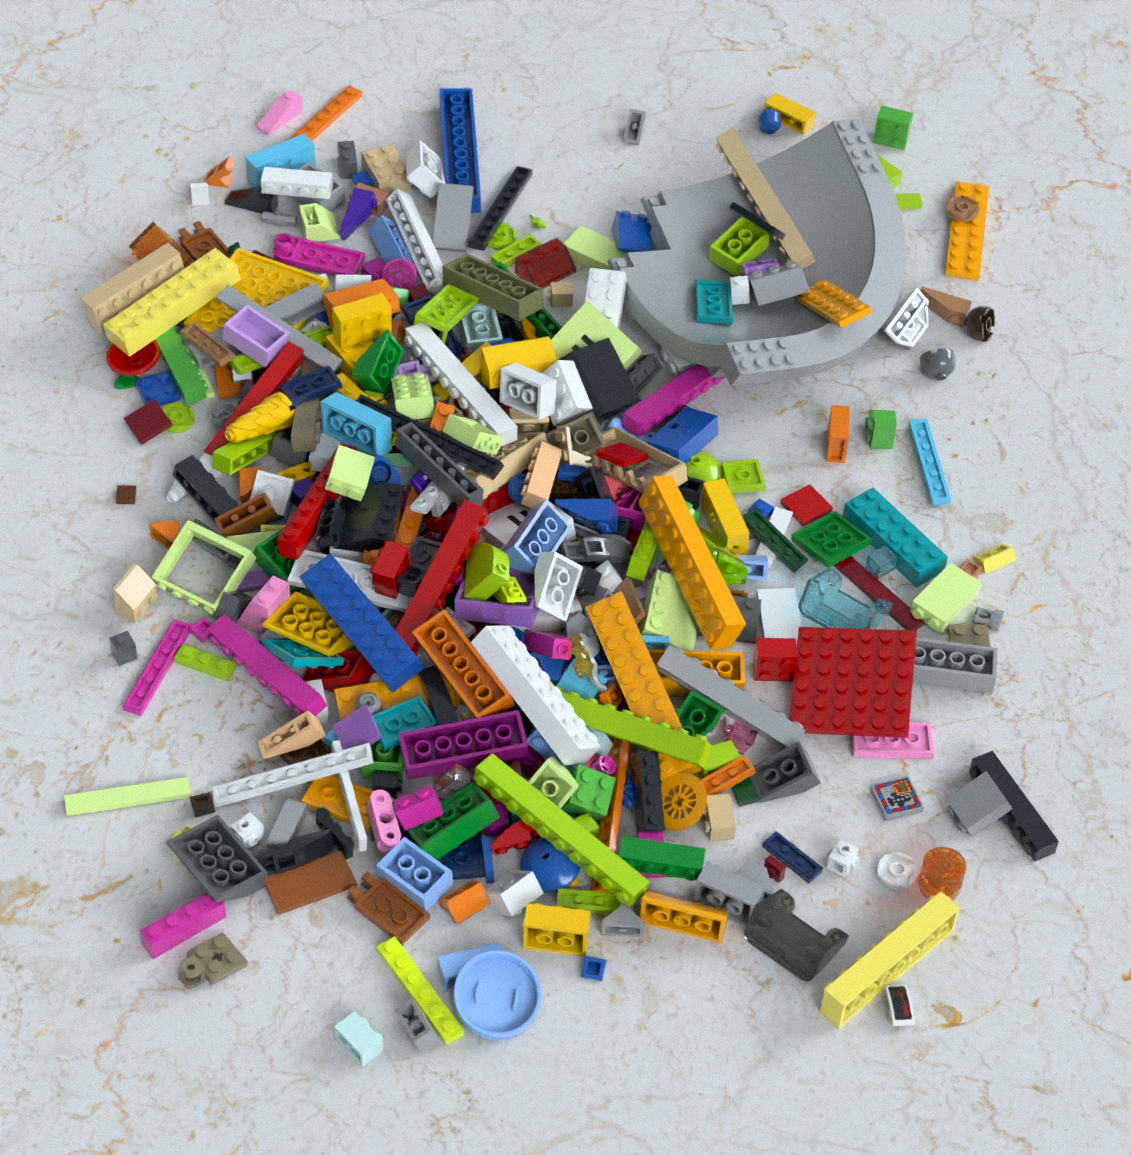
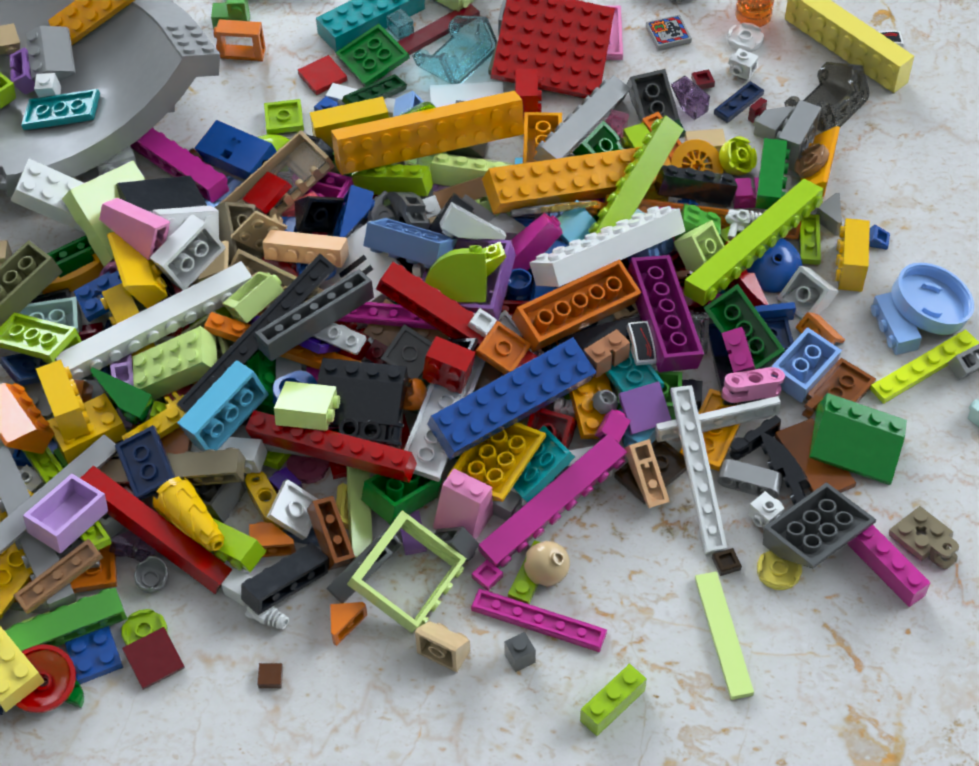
camera: 85 degrees left, 5 degrees up
(70, 710) = (613, 699): none -> lime brick
(206, 666) = (547, 563): none -> tan cylinder
(321, 909) = (857, 438): none -> green slope
(336, 706) = (615, 424): none -> dark pink brick
(411, 610) = (502, 348): none -> orange tile
(416, 699) = (600, 352): none -> nougat piece
(426, 720) = (642, 343): none -> slope
(435, 590) = (482, 322): none -> white tile
(552, 348) = (135, 225): none -> bright pink slope
(597, 827) = (739, 220): none -> white piece
(683, 897) = (812, 160): none -> medium nougat tile
(695, 833) = (737, 156): none -> neon yellow cylinder
(787, 806) = (691, 97): none -> clear purple slope
(820, 823) = (703, 79): none -> dark red plate

